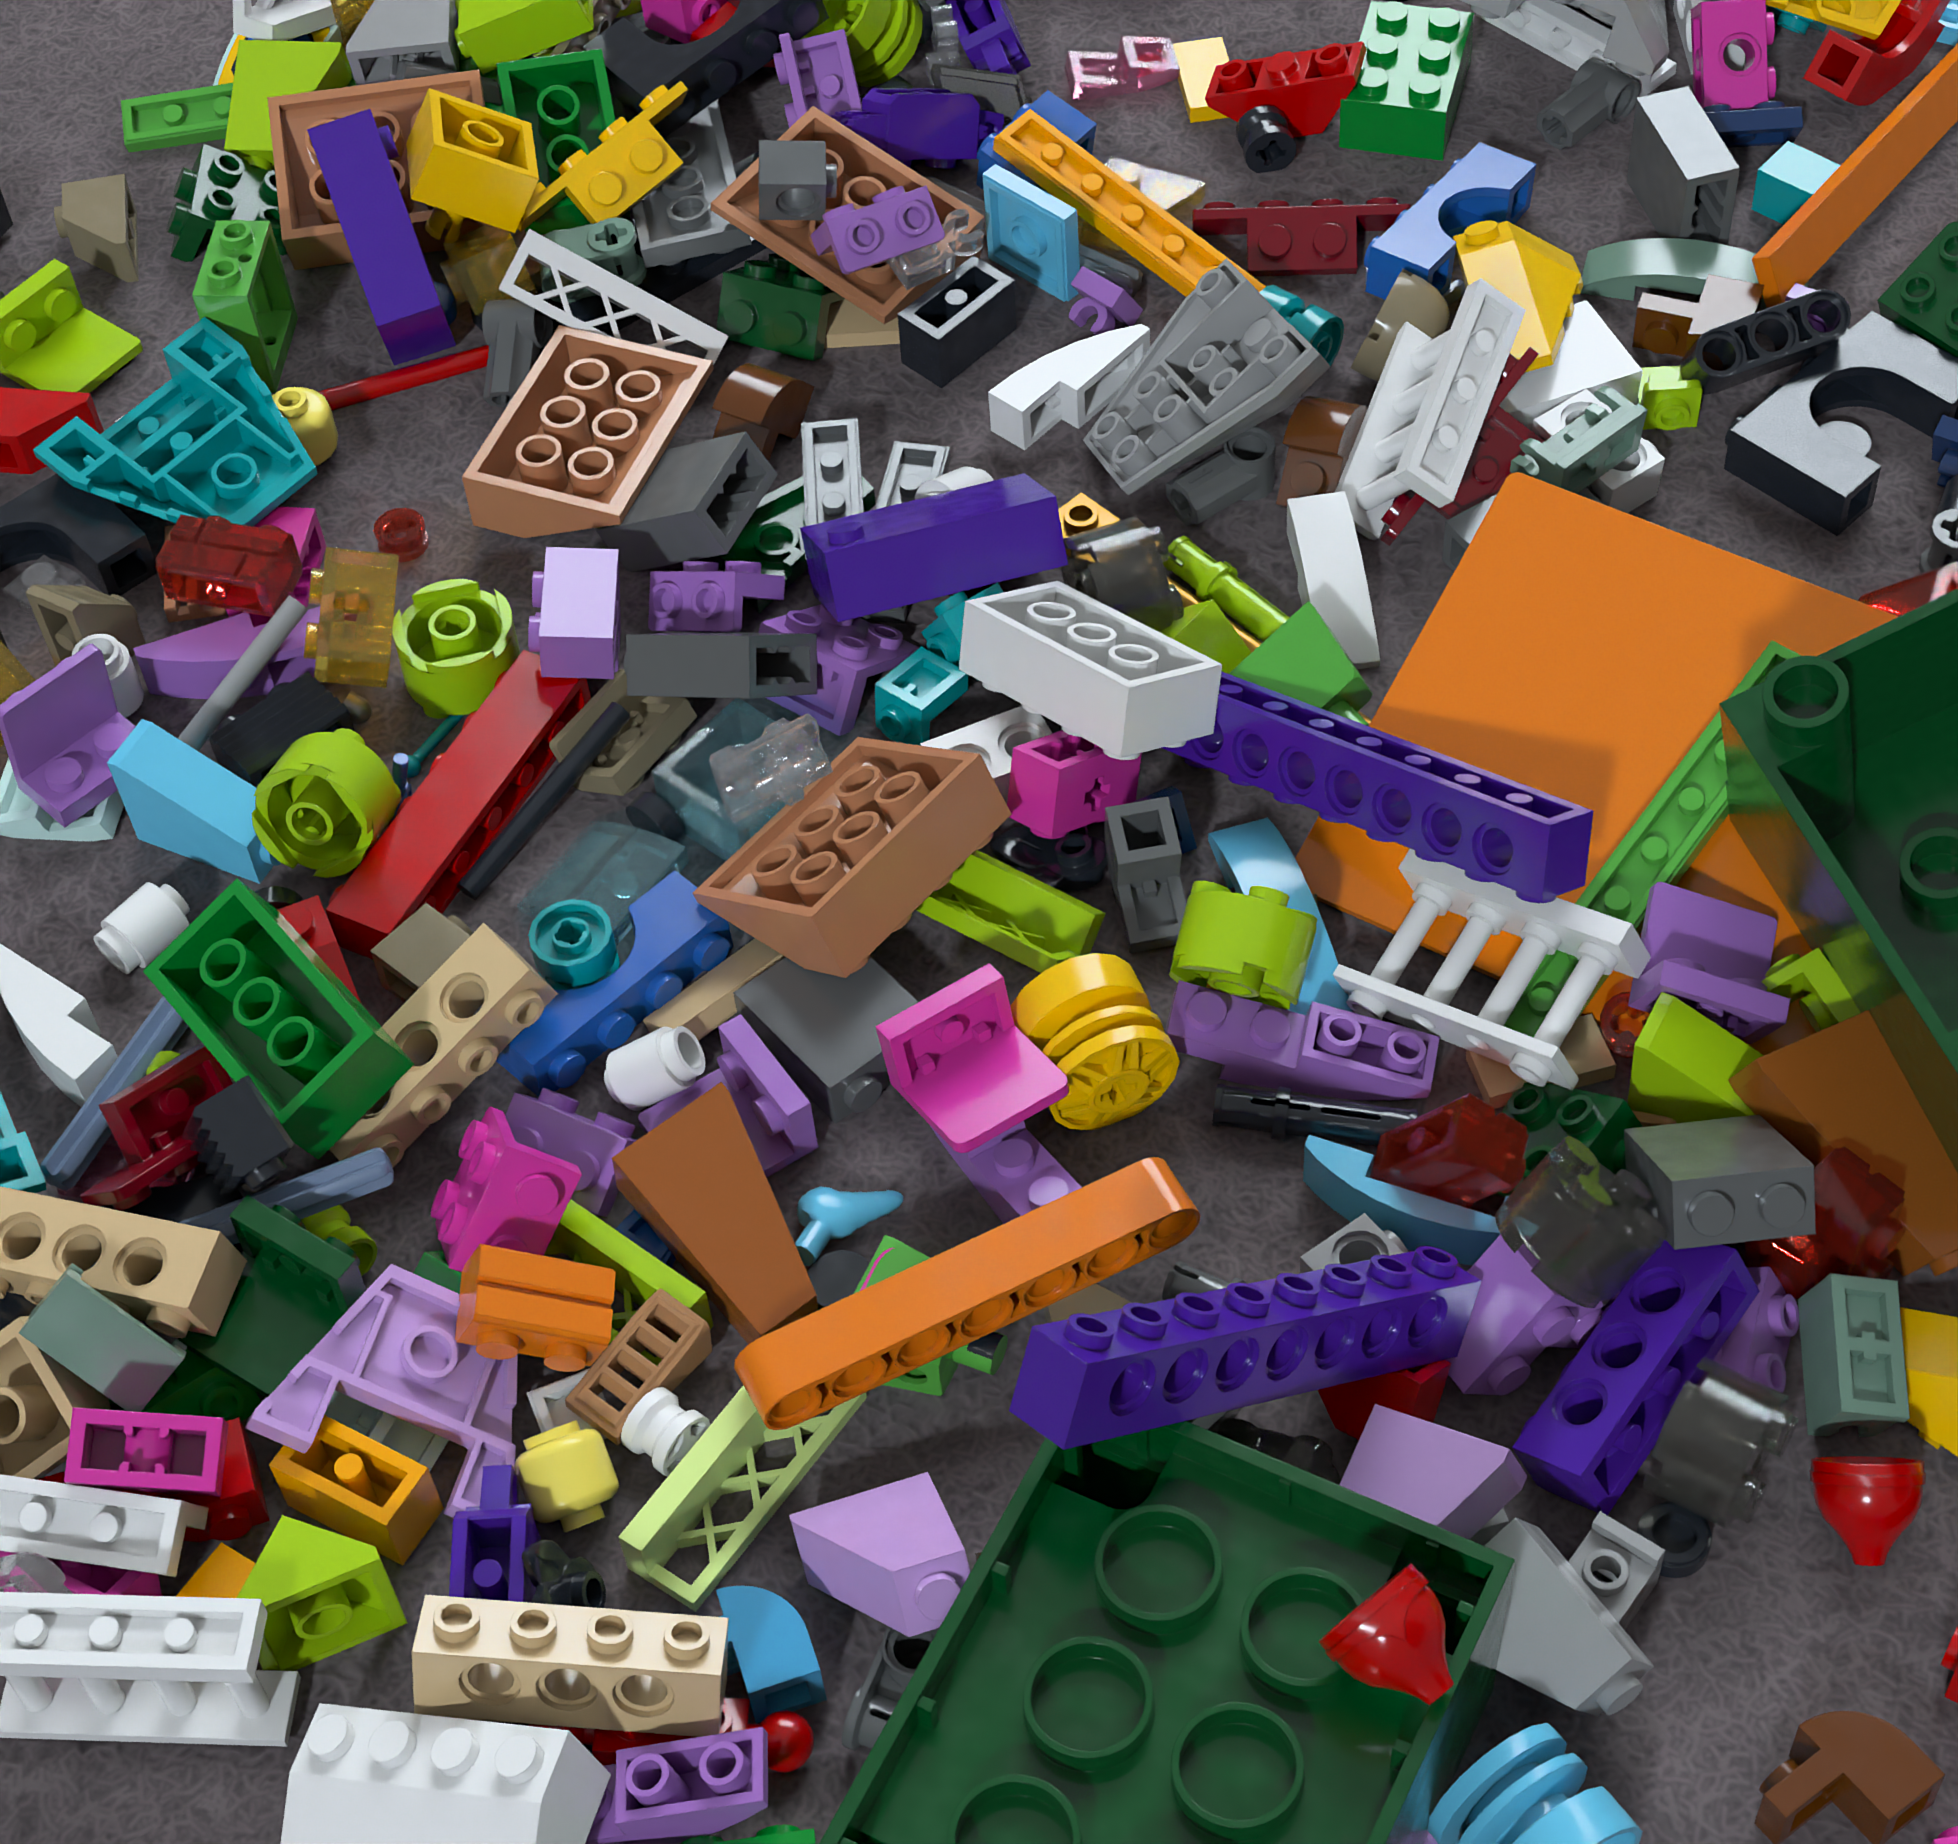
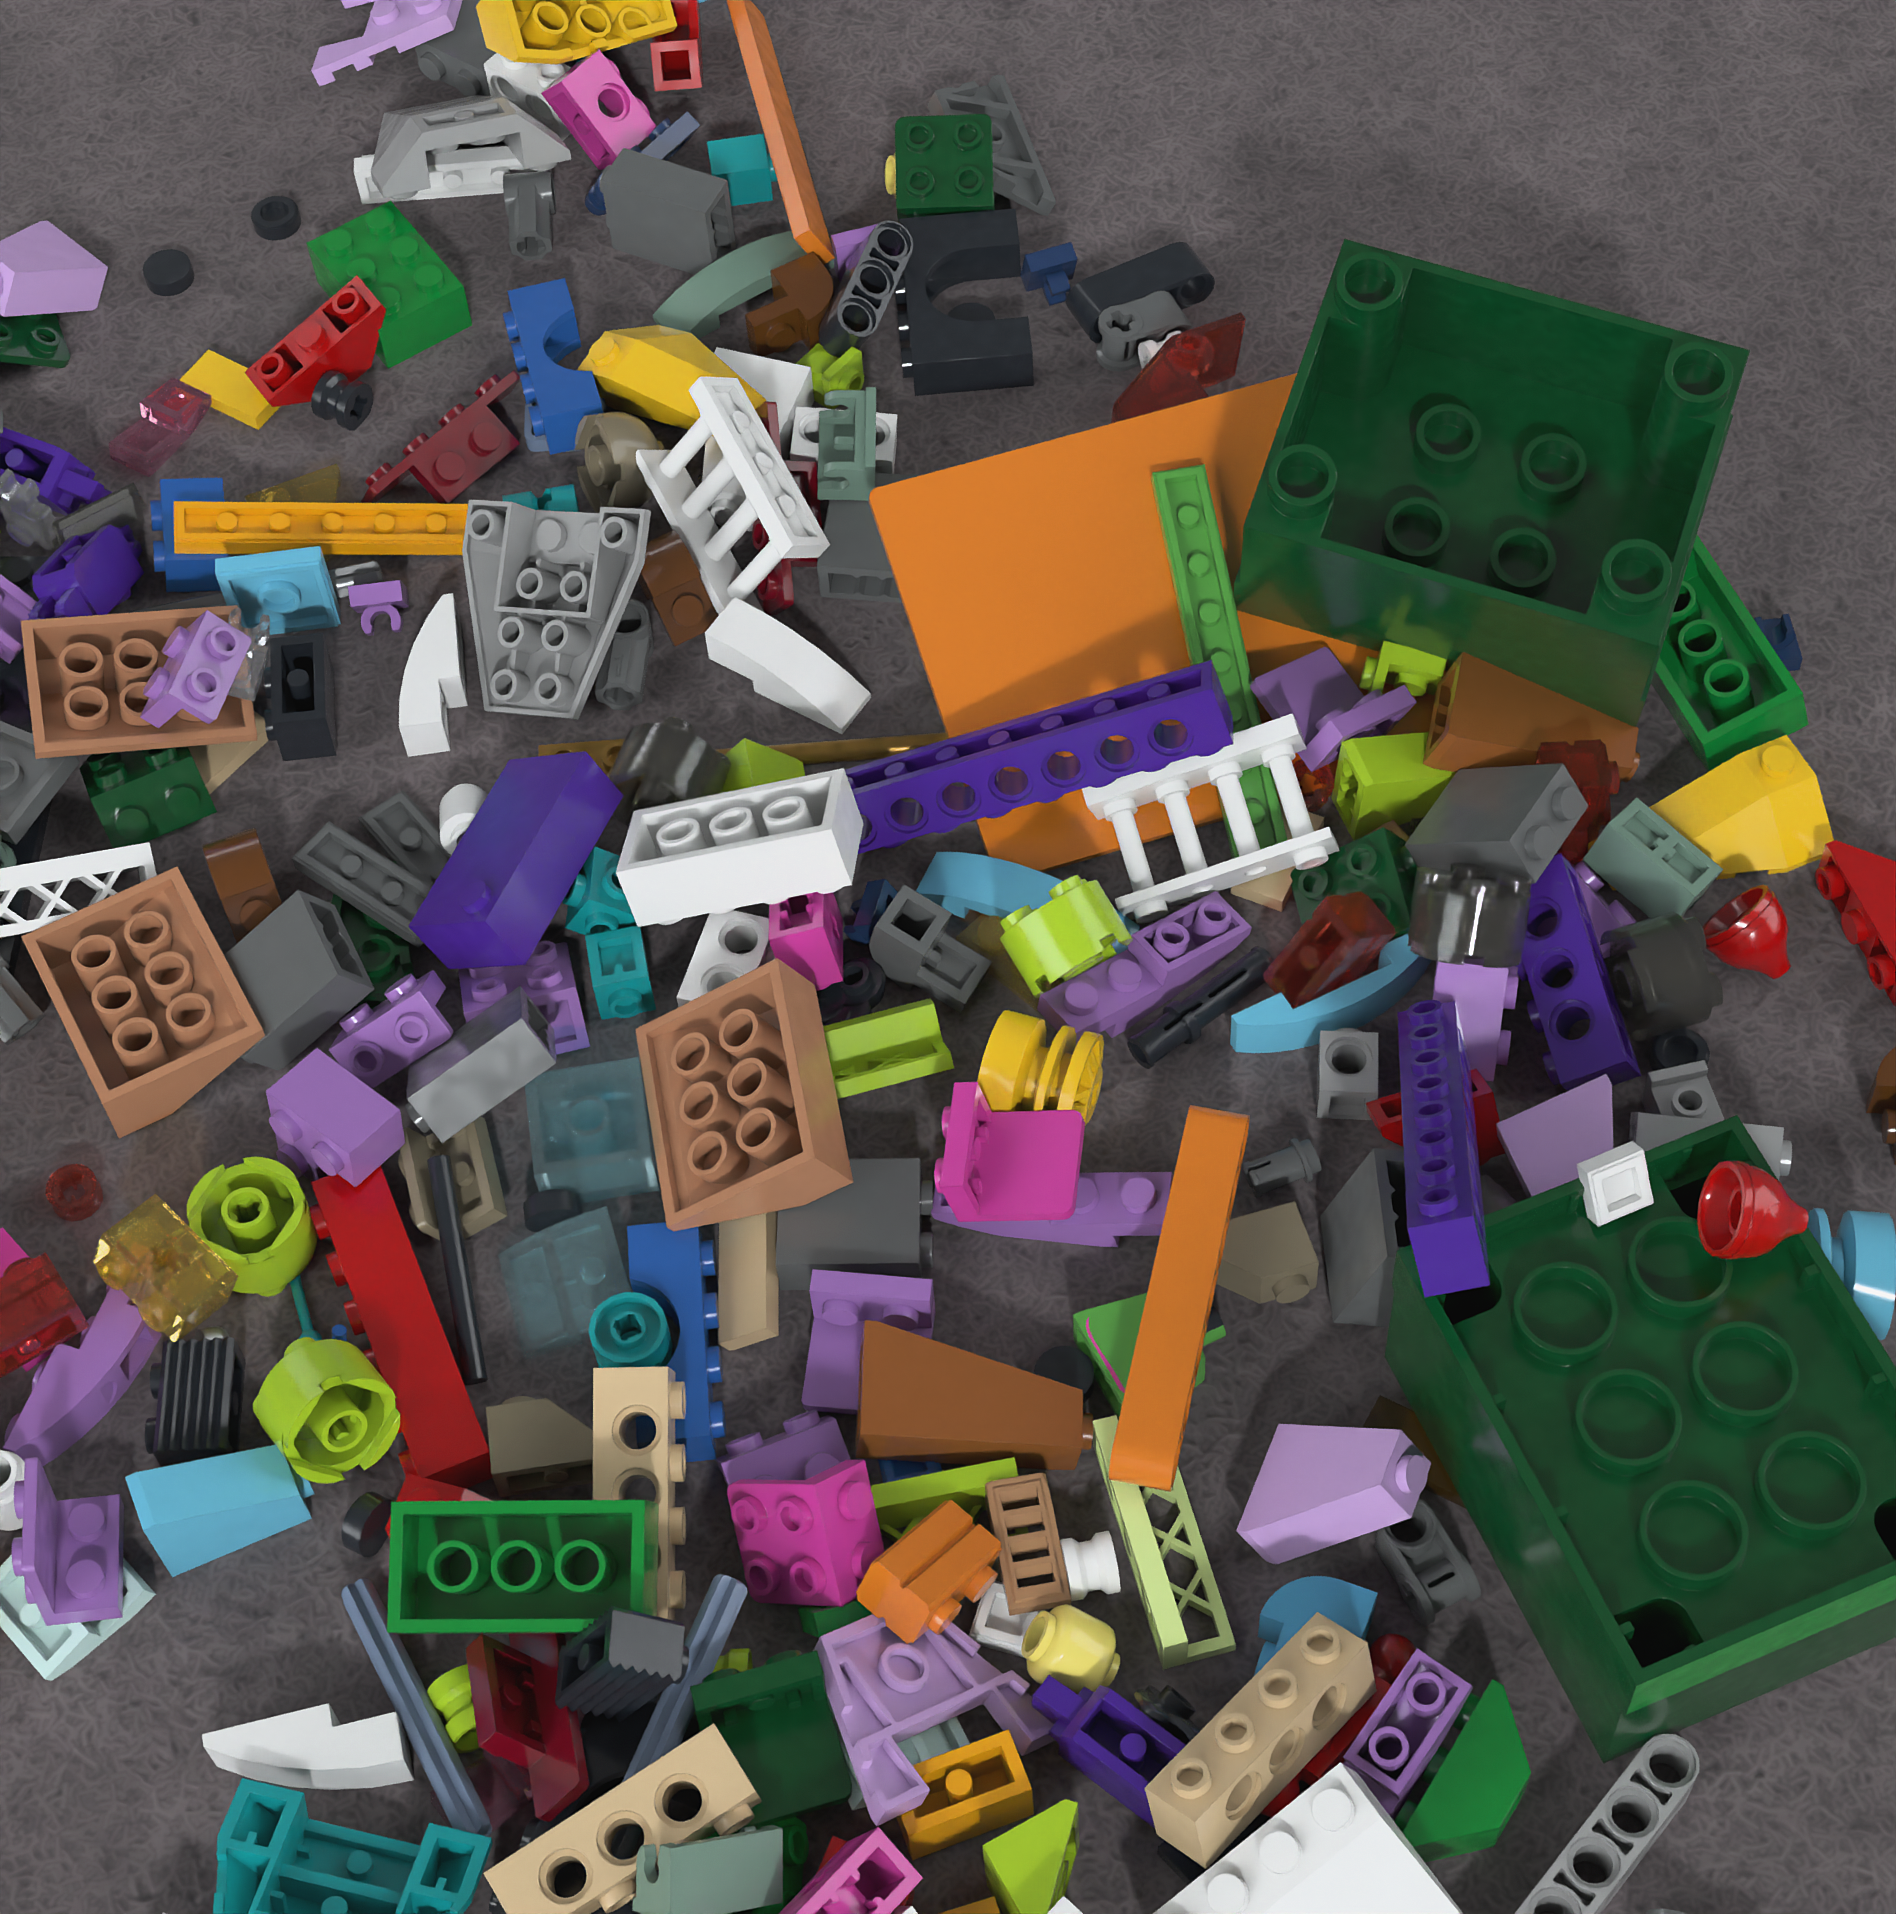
camera: 50 degrees left, 5 degrees up
(142, 927) = (281, 1624): white brick -> none
(243, 673) = (121, 1403): light grey bar -> none
(654, 1067) = (780, 1362): white brick -> none
(770, 767) = (635, 1095): clear hips -> none
(794, 180) = (88, 685): dark grey brick -> none
(837, 1214) = (1007, 1334): medium azure animal -> none
(1220, 582) = (757, 727): lime pin -> none
(1308, 665) = (860, 730): bright green torso -> none
(1332, 1507) = (1615, 1183): none -> white tile

